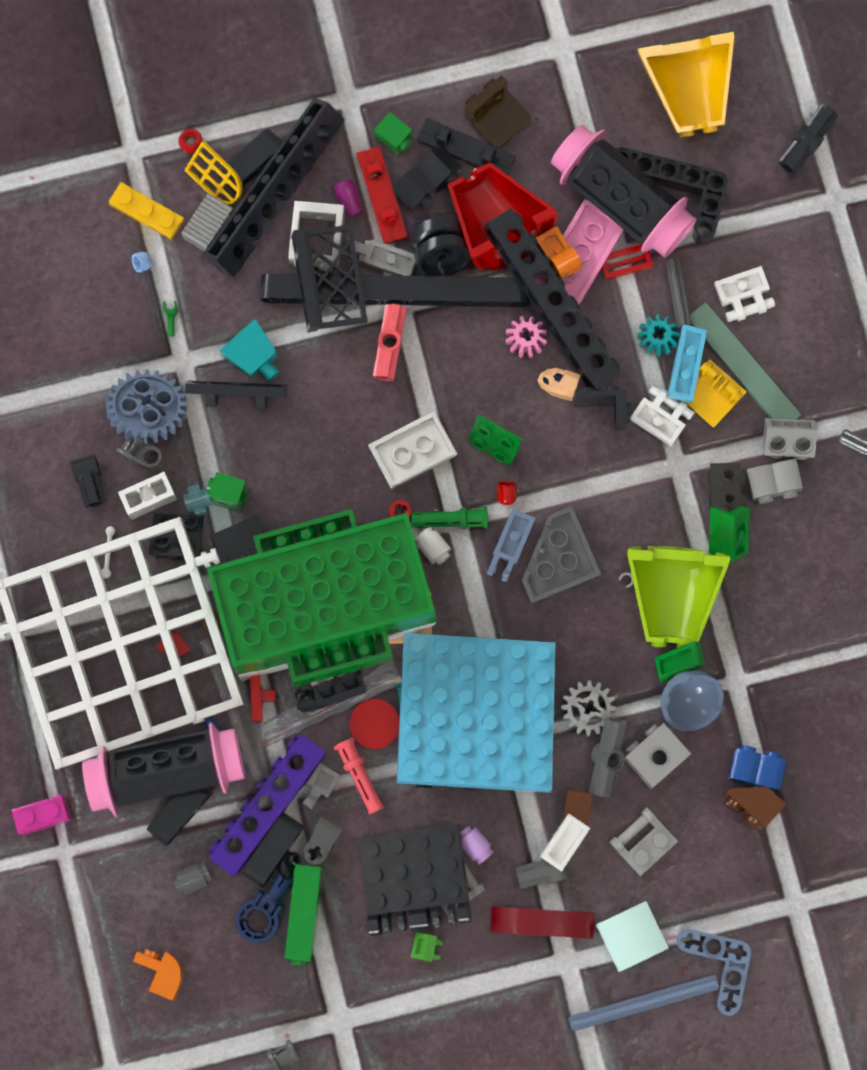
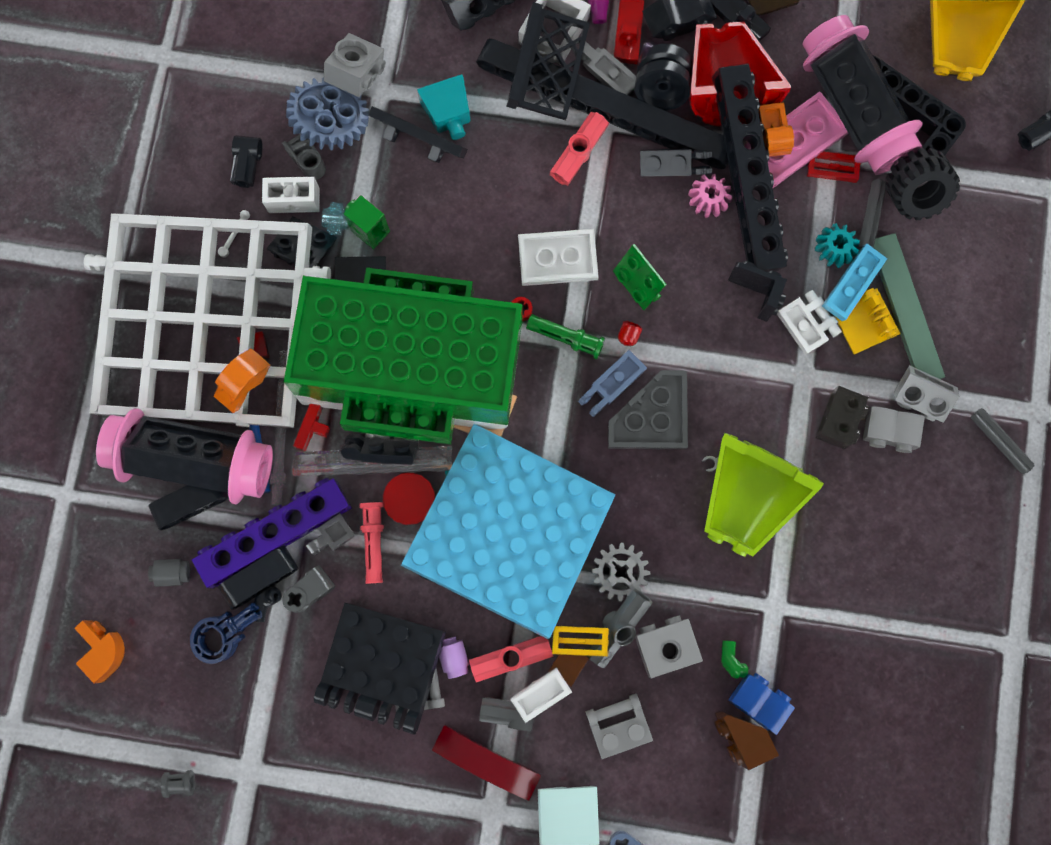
camera: 20 degrees right, 0 degrees up
(41, 815) = (56, 450): dark pink brick -> none
(151, 351) = (354, 65): none -> light grey brick
(170, 316) = (389, 41): green hand -> none
(183, 681) = (239, 378): none -> orange brick
(303, 914) = (258, 652): green slope -> none
(424, 947) = (360, 737): bright green tile -> none
(433, 546) = (538, 353): white brick -> none
(480, 320) = (672, 162): none -> black hinge
(537, 811) = (493, 663): none -> coral piece
(559, 383) = (723, 251): light nougat rock -> none
(599, 774) = (604, 641): none -> yellow tile
(679, 660) = (729, 565): green tile -> none
(691, 700) = (725, 608): sand blue cylinder -> none
(710, 251) = (914, 171): none -> black tyre
(717, 746) = (729, 661): none -> green arm
(729, 532) = (830, 459): green panel -> none
(743, 286) = (936, 233): white plate -> none

